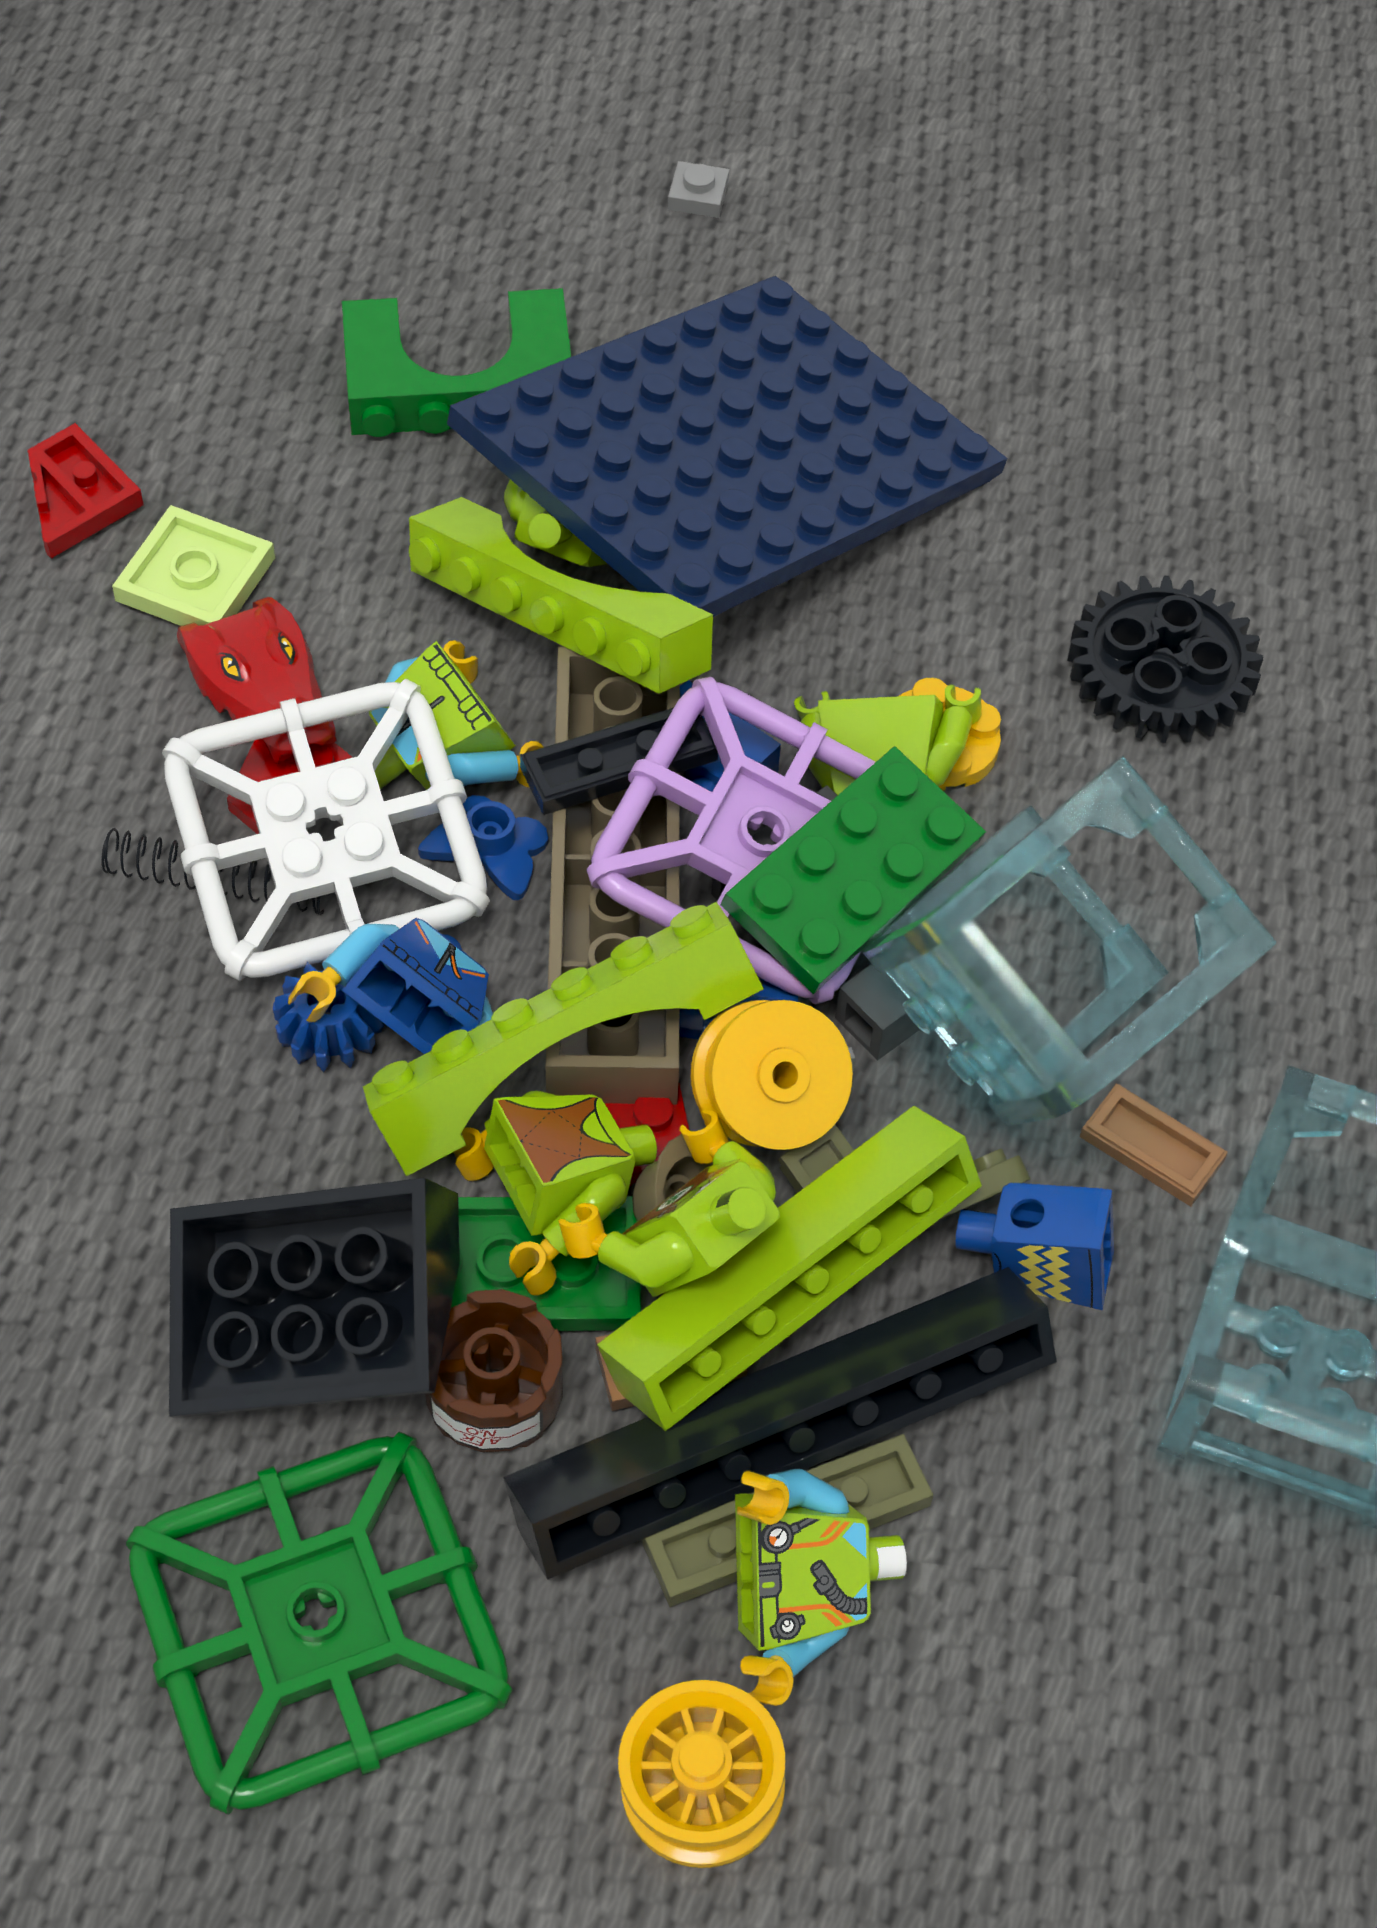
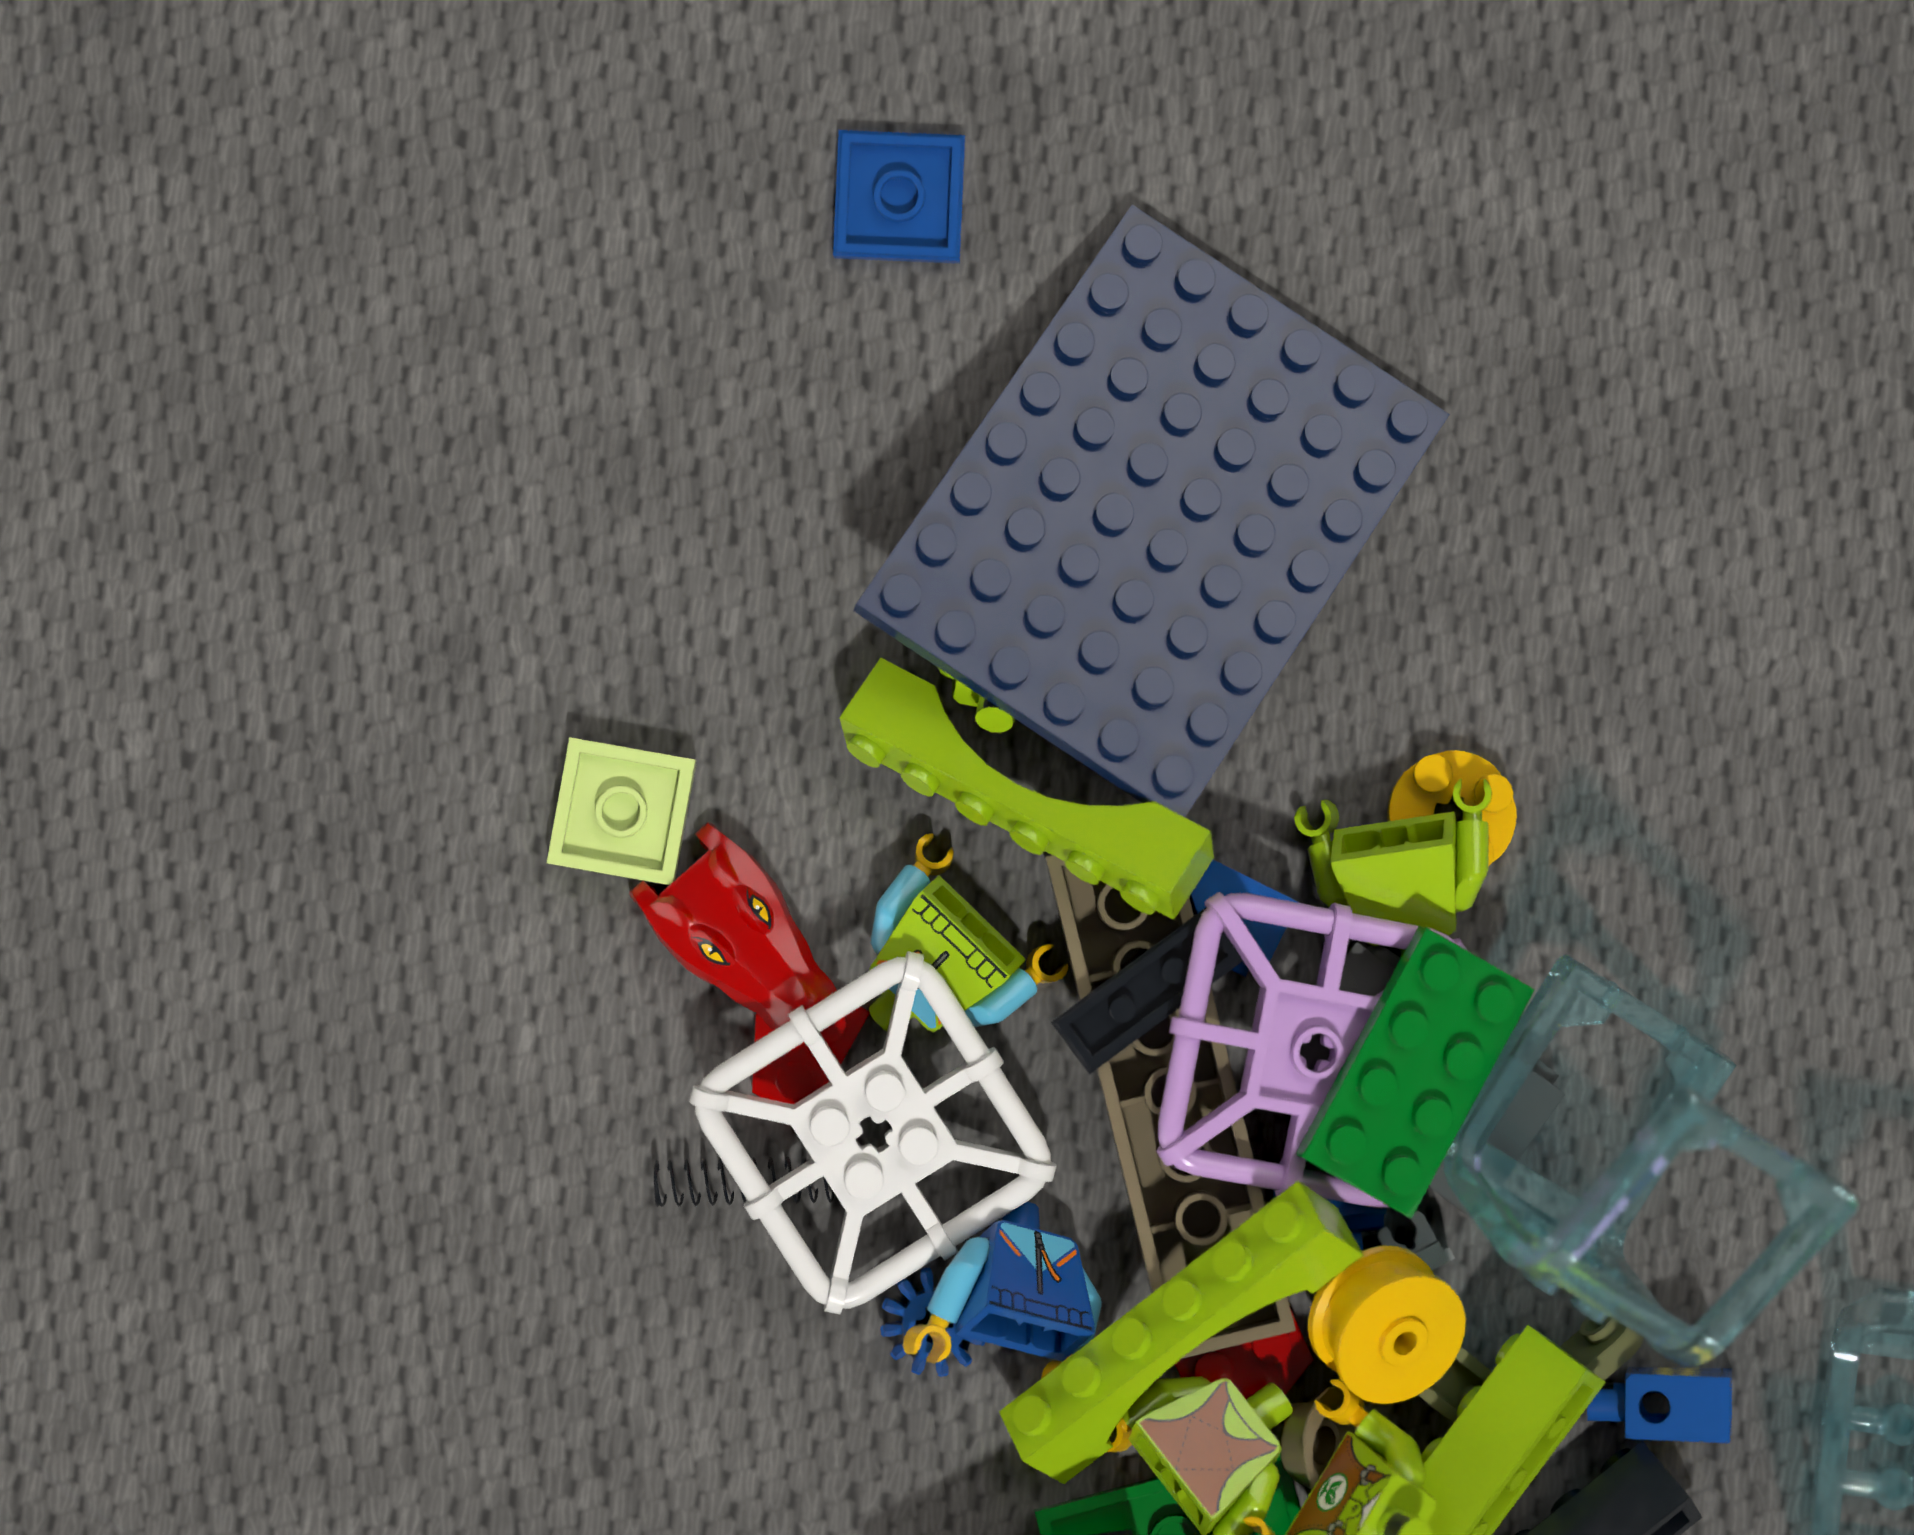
camera: 10 degrees left, 30 degrees up
(77, 489) = (456, 732): red wing -> none
(397, 395) = (752, 510): green arch -> none
(501, 840) = (1034, 1068): blue animal -> none
(585, 239) = (899, 196): none -> blue tile
(698, 189) = (1009, 80): light grey plate -> none
(1153, 1144) = (1734, 1240): medium nougat tile -> none
(1165, 659) = (1703, 701): black gear -> none

